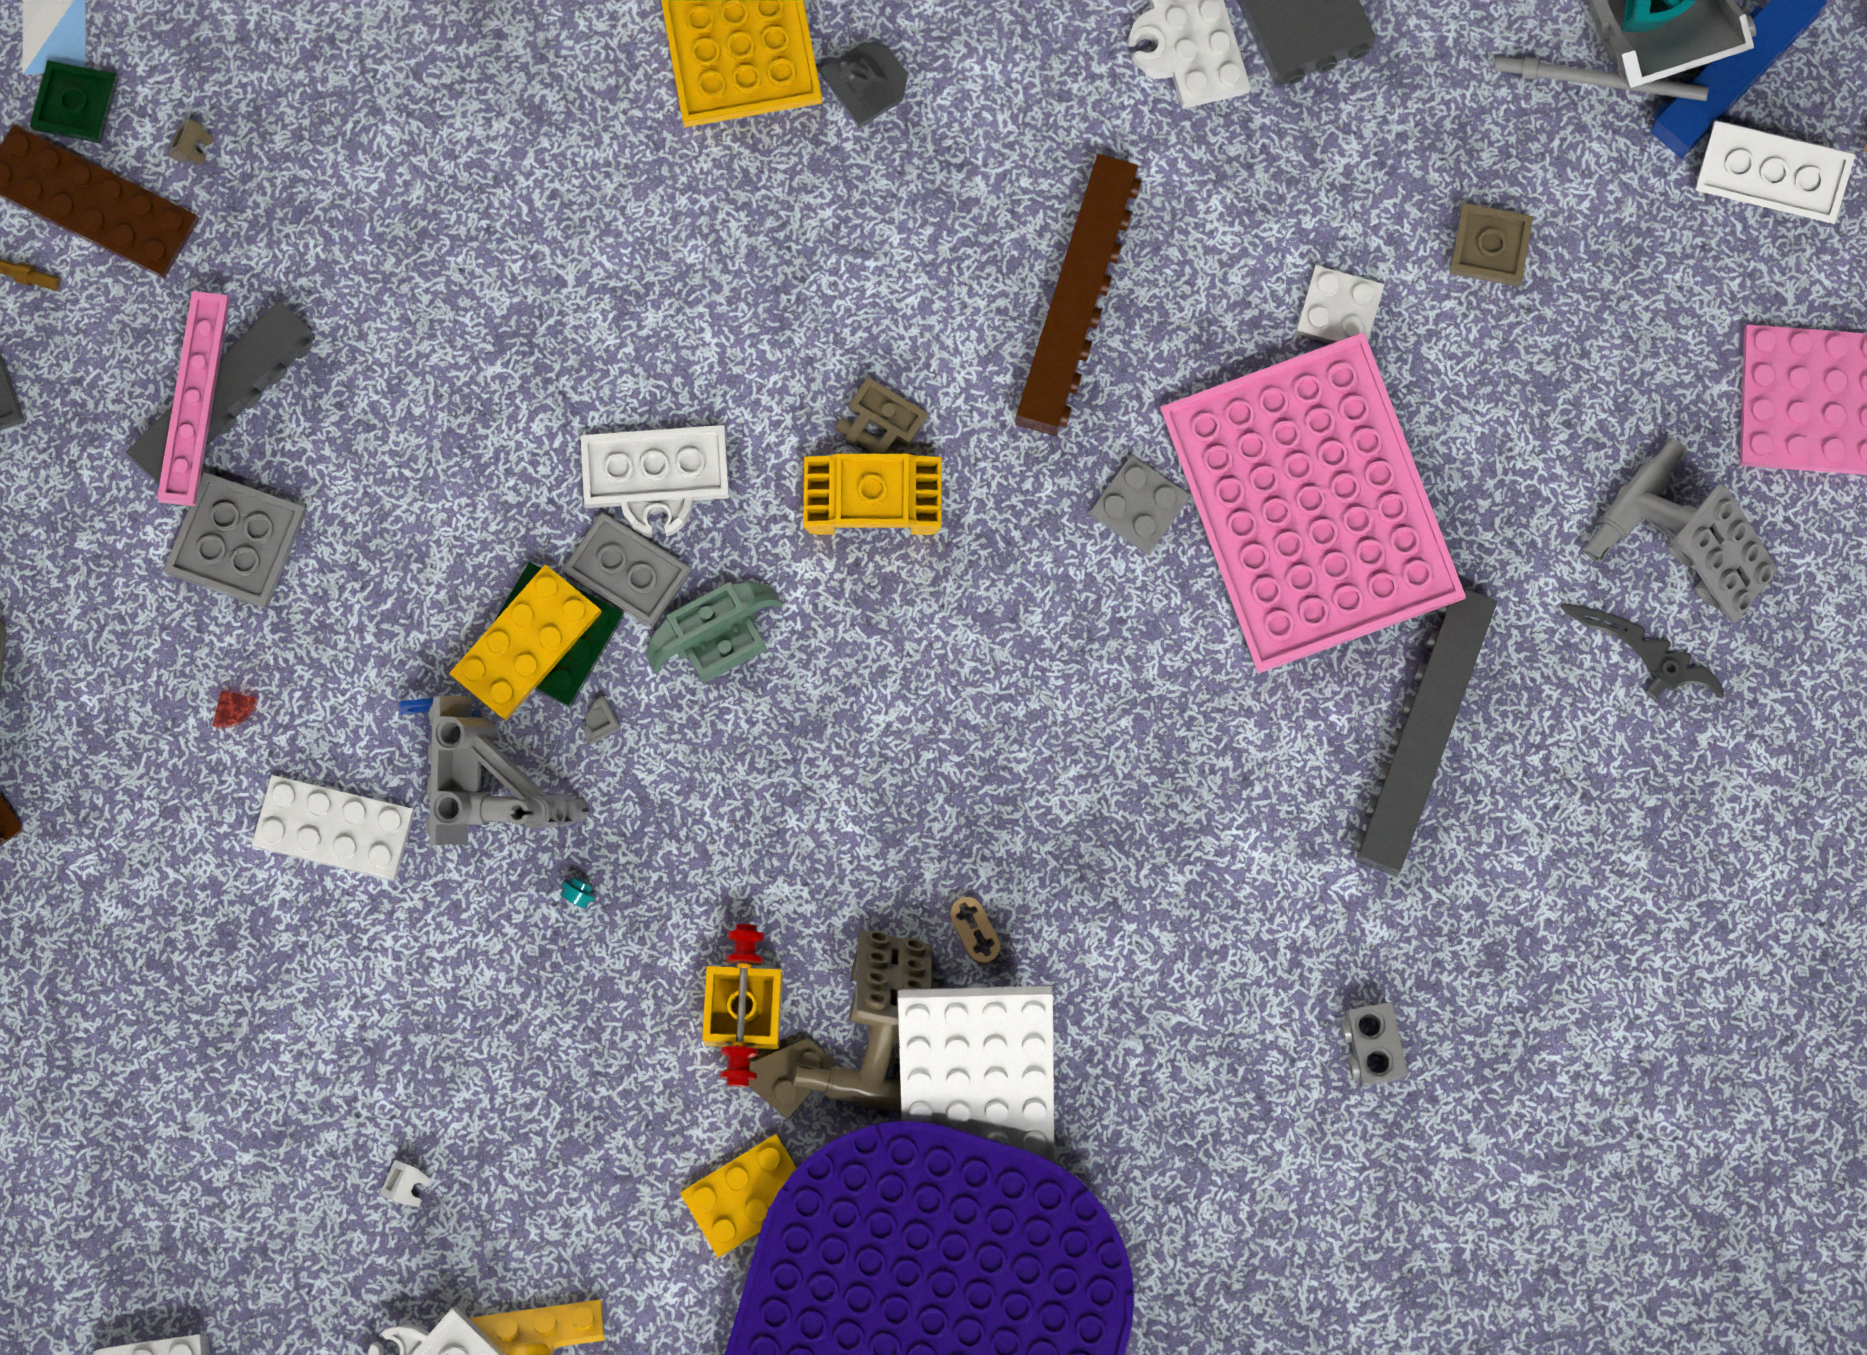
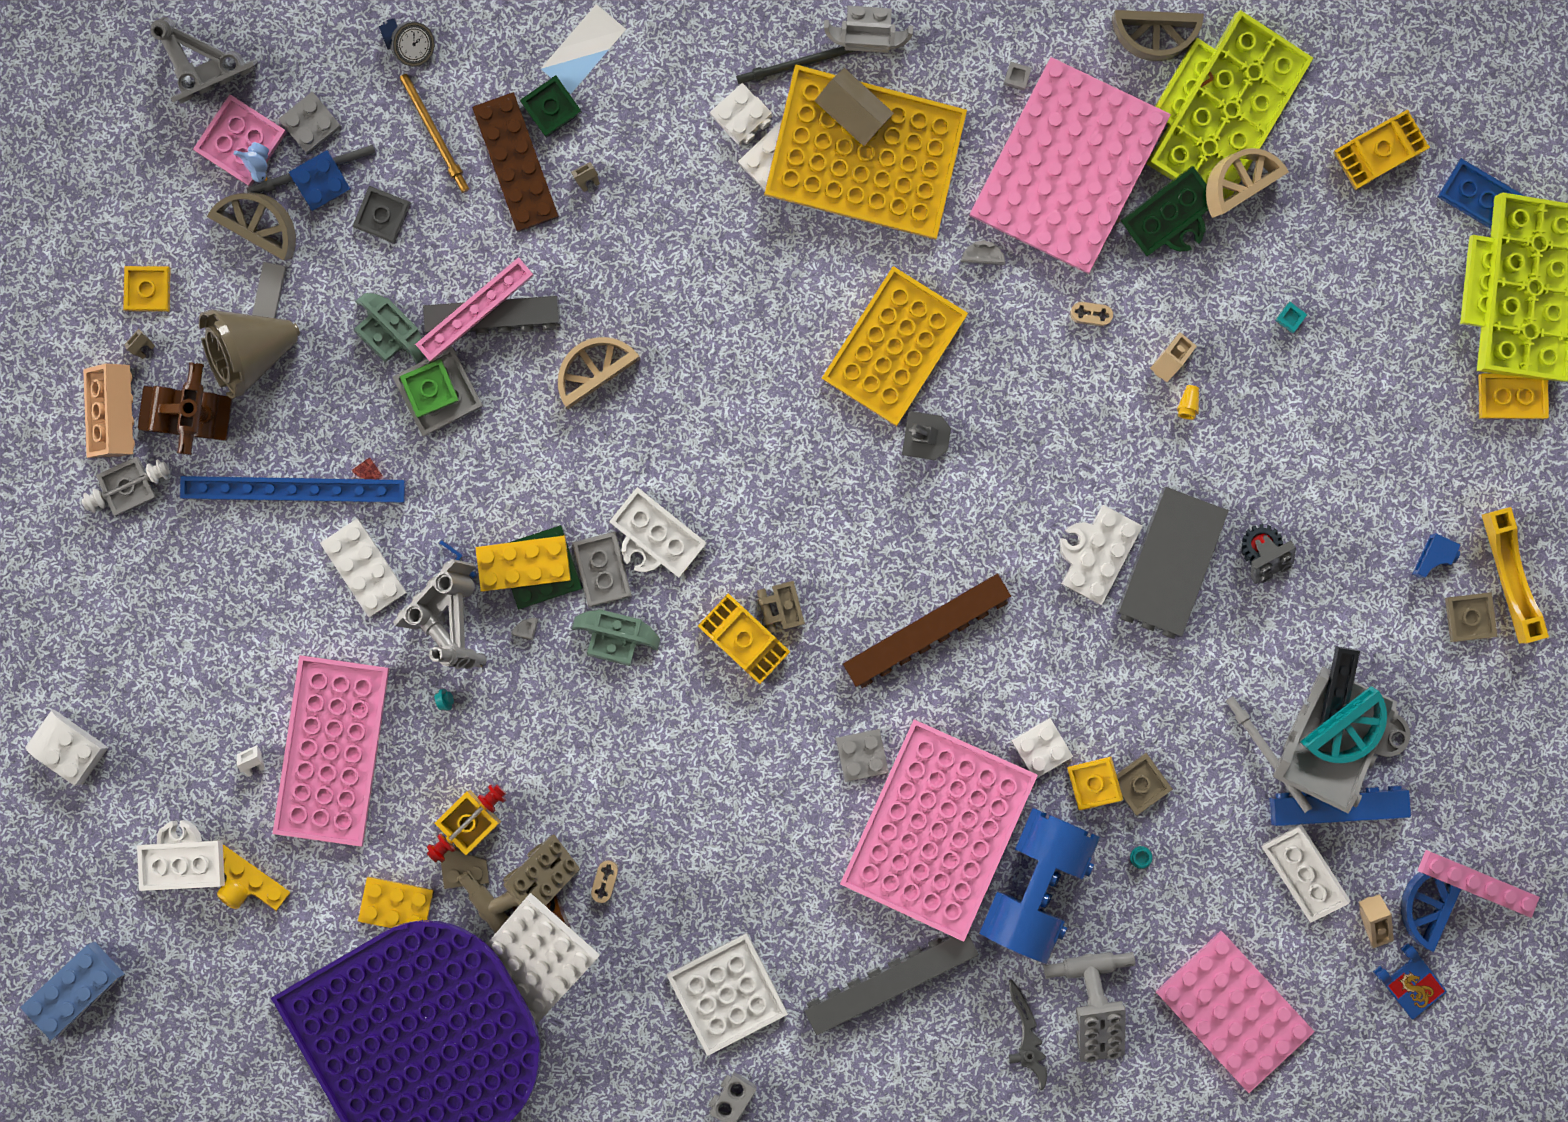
camera: 40 degrees right, 10 degrees up
(107, 521) = (387, 328): none -> sand green plate
(158, 813) = (292, 489): none -> blue plate
(222, 539) = (429, 388): none -> bright green plate
(419, 355) = (600, 378): none -> tan window
(494, 1081) = (331, 750): none -> bright pink plate
(1248, 927) = (727, 994): none -> white plate
(1438, 290) = (1095, 783): none -> yellow tile
(1469, 392) = (1023, 923): none -> blue cylinder
(1573, 327) = (1141, 857): none -> teal plate

